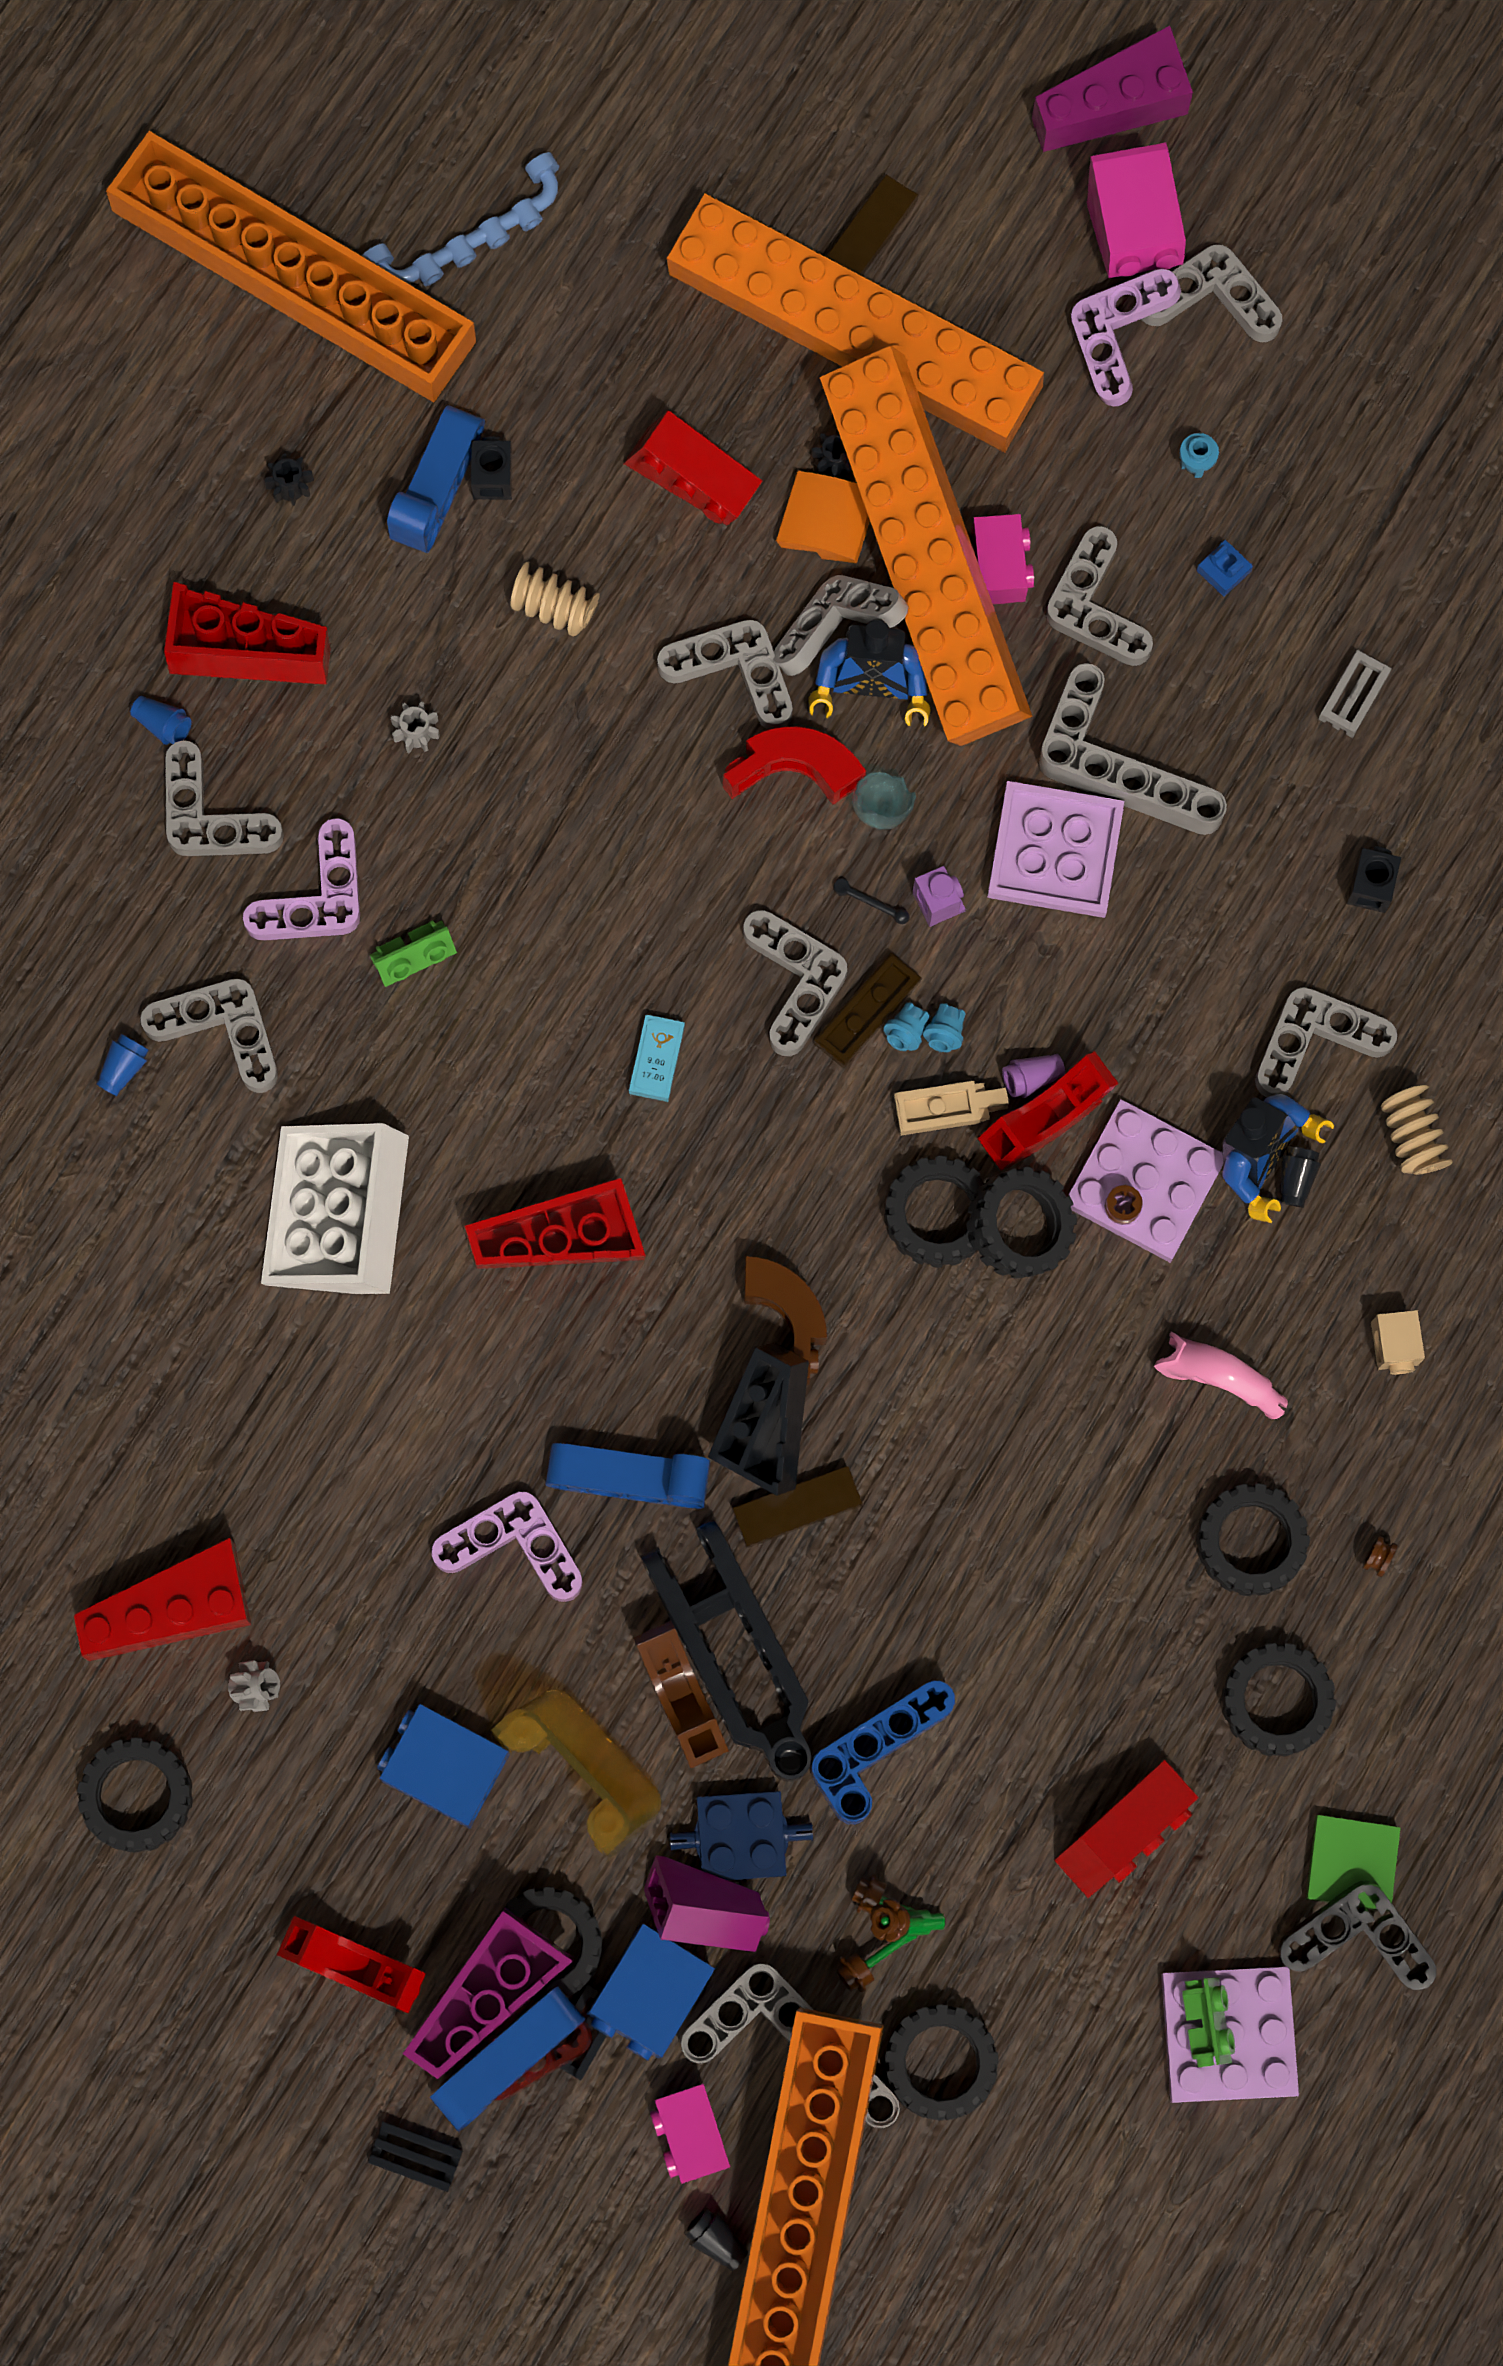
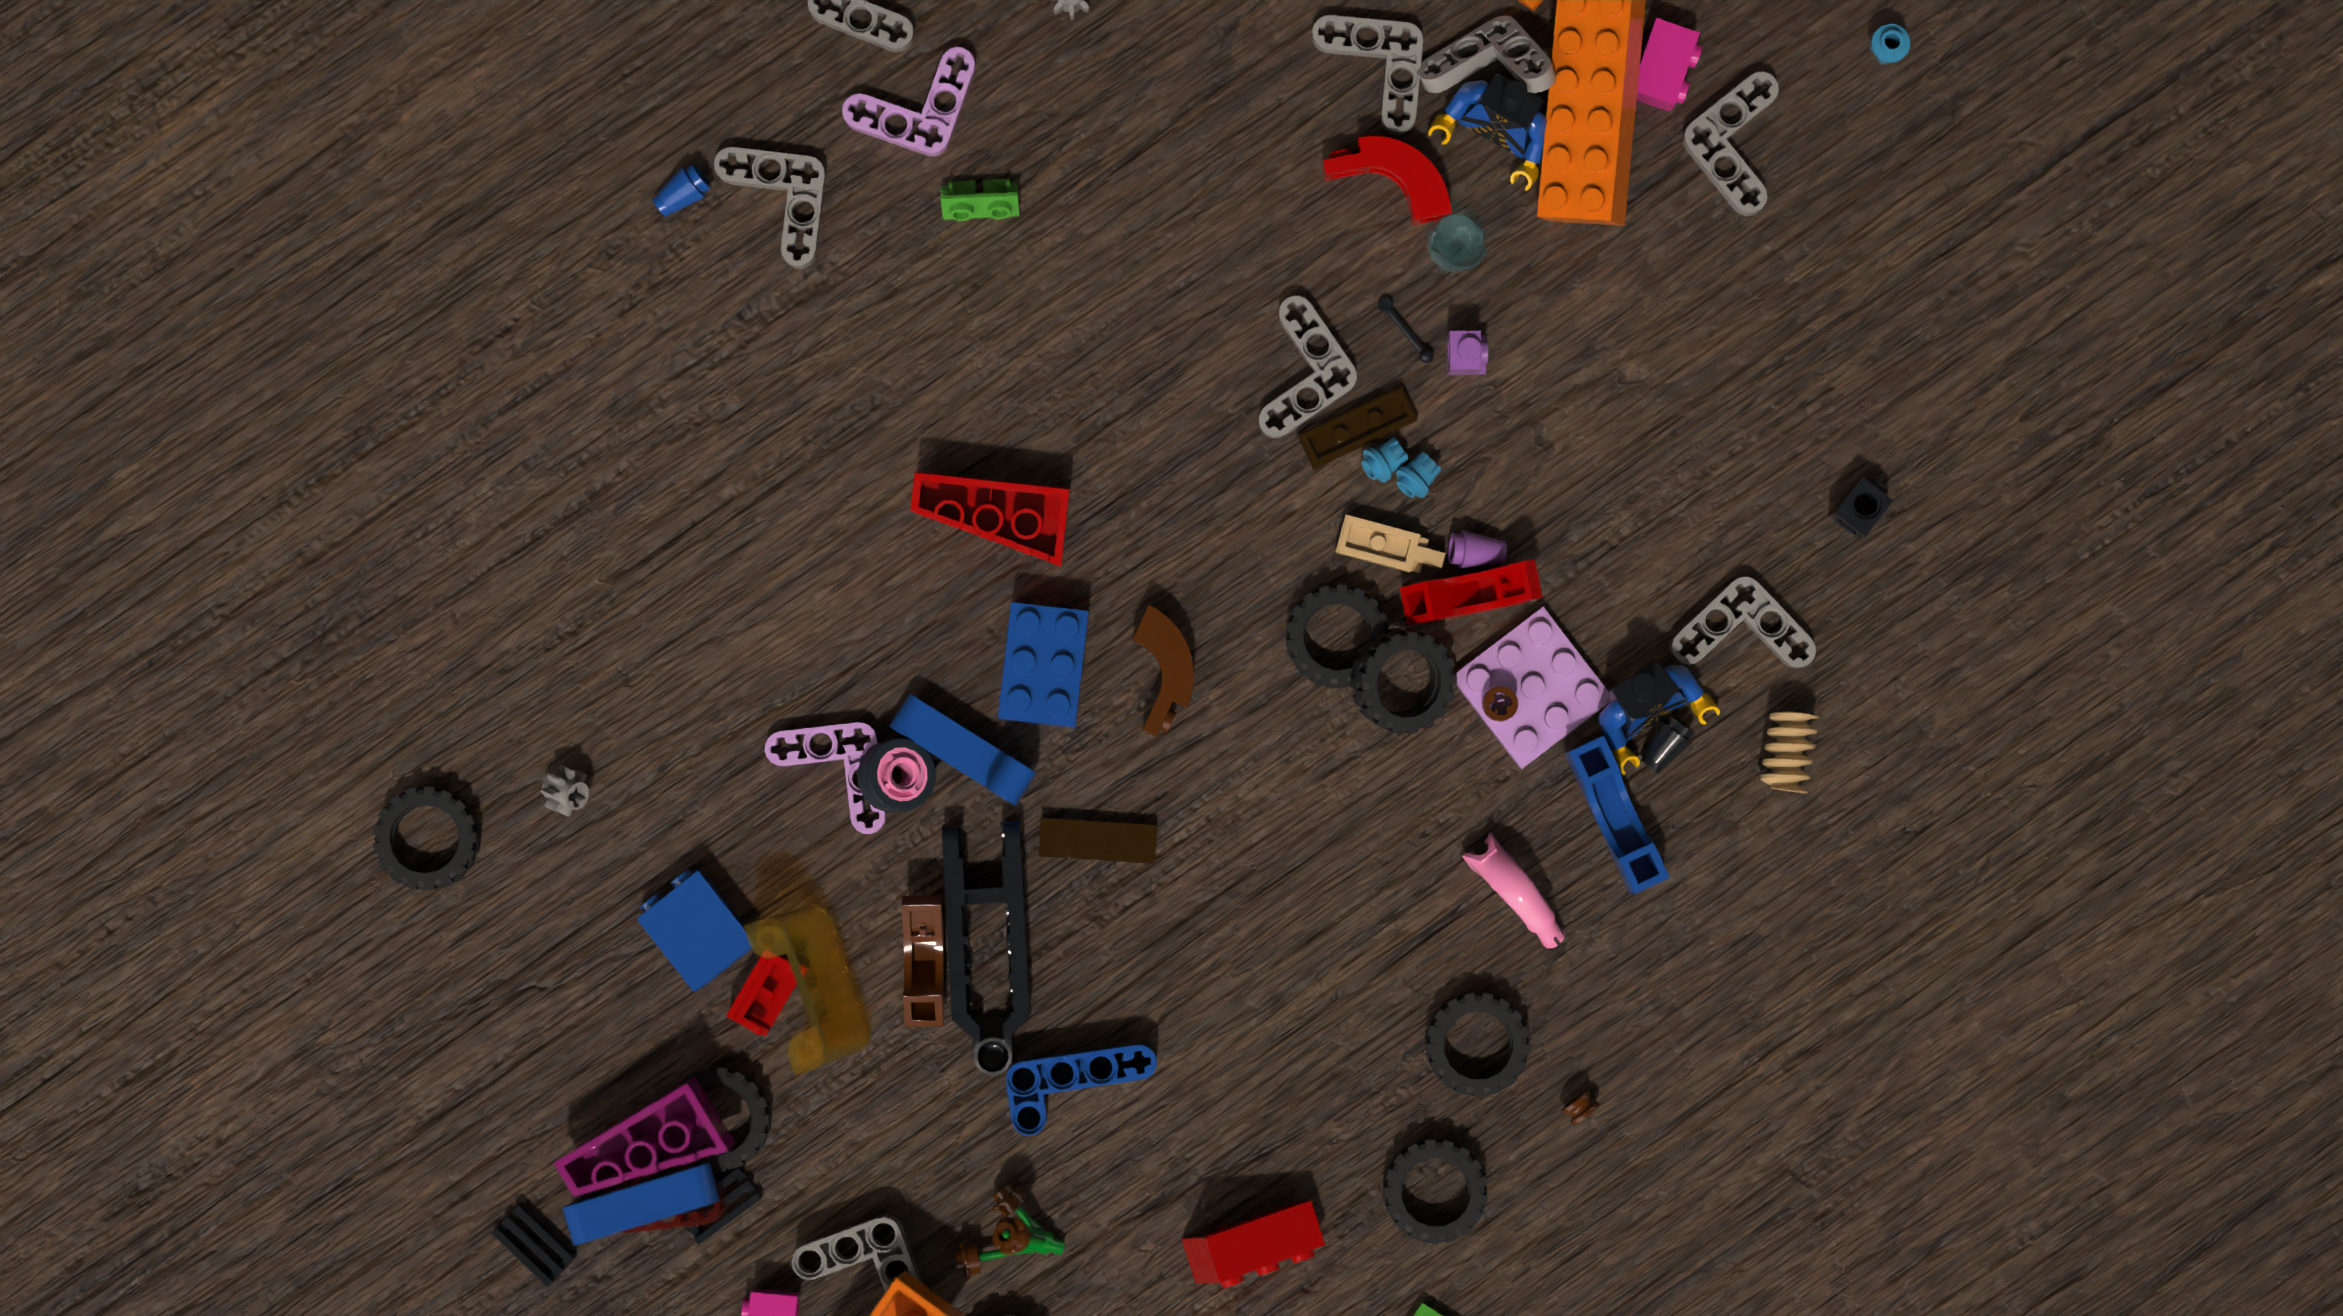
camera: 25 degrees right, 10 degrees up
(175, 1605) = (533, 691): red wedge -> none
(335, 1208) = (813, 402): white slope -> none
(351, 1964) = (547, 1063): red arch -> none
(538, 1797) = (763, 995): none -> red hinge
(557, 1538) = (876, 775): none -> wheel
(649, 1993) = (786, 1199): blue brick -> none
(656, 1058) = (1152, 389): medium azure tile -> none
(670, 1360) = (1043, 665): none -> blue brick
(703, 1907) = (863, 1149): magenta slope -> none
(742, 1835) = (923, 1101): dark blue plate -> none
(765, 1420) = (1099, 758): black wedge -> none
(1056, 849) = (1590, 355): lavender plate -> none
(1119, 767) = (1679, 305): light grey beam -> none
(1224, 568) = (1864, 160): blue tile -> none
(1255, 1240) = (1615, 815): none -> blue arch
(1339, 721) = (1900, 347): light grey tile -> none
(1398, 1341) = (1684, 929): tan brick -> none

